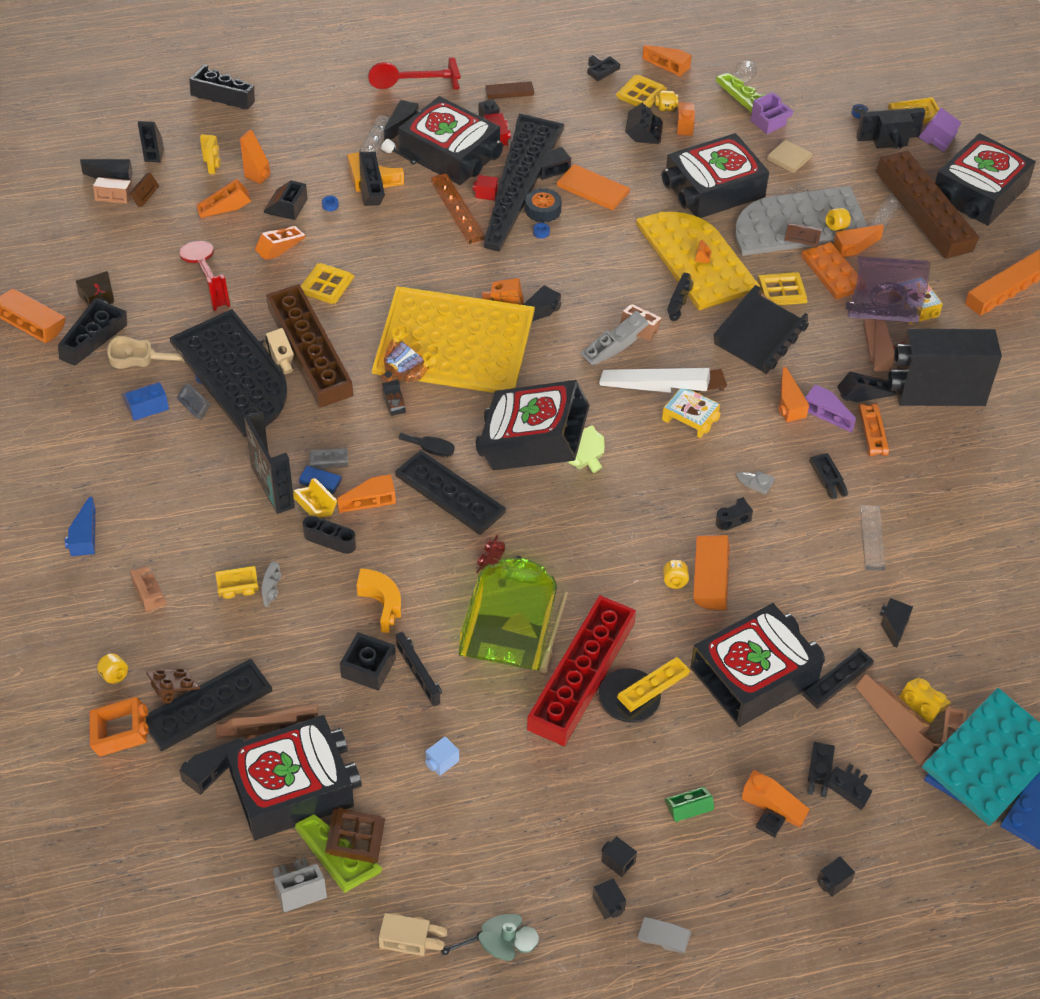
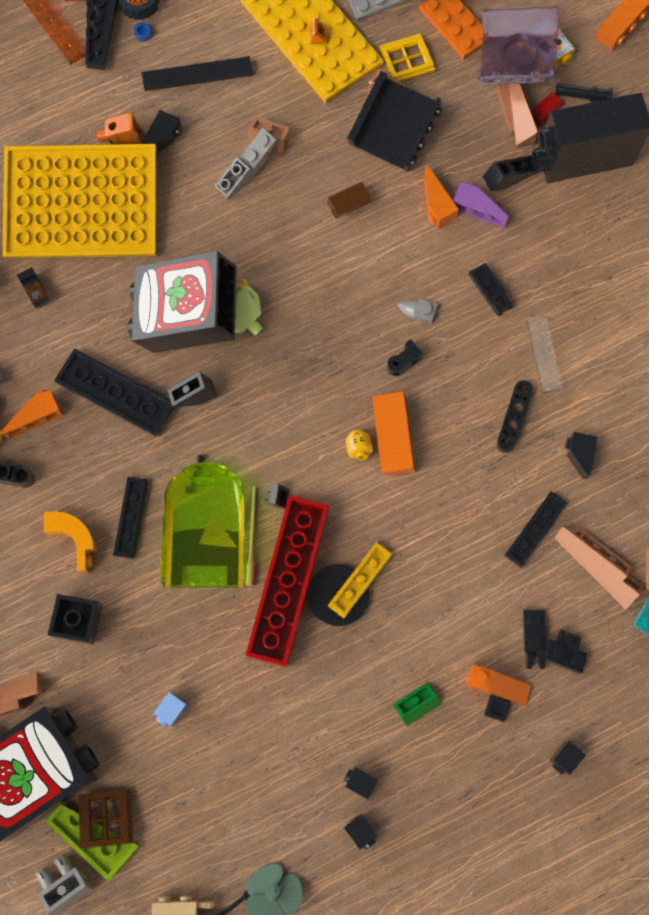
camera: 10 degrees left, 25 degrees up
(403, 362) = (33, 245): torso -> none
(406, 649) = (108, 590): black plate -> none
(430, 444) = (84, 336): black piece -> none
(440, 595) = (130, 518): none -> black tile
(493, 549) = (172, 454): clear red hinge -> none
(524, 501) = (192, 391): none -> black slope
(584, 268) = (197, 73): none -> black tile
(586, 600) = (278, 496): none -> black tile
(657, 379) = (298, 208): white slope -> none
(664, 934) = (418, 858): light grey slope -> none
(680, 296) = (303, 95): black hinge -> none
(692, 410) = (341, 238): panel -> none
(757, 663) = (457, 537): brick -> none
(834, 581) = (514, 416): none -> black beam
(873, 429) = (526, 221): orange plate -> none
(924, 699) = (621, 537): yellow bracket -> none

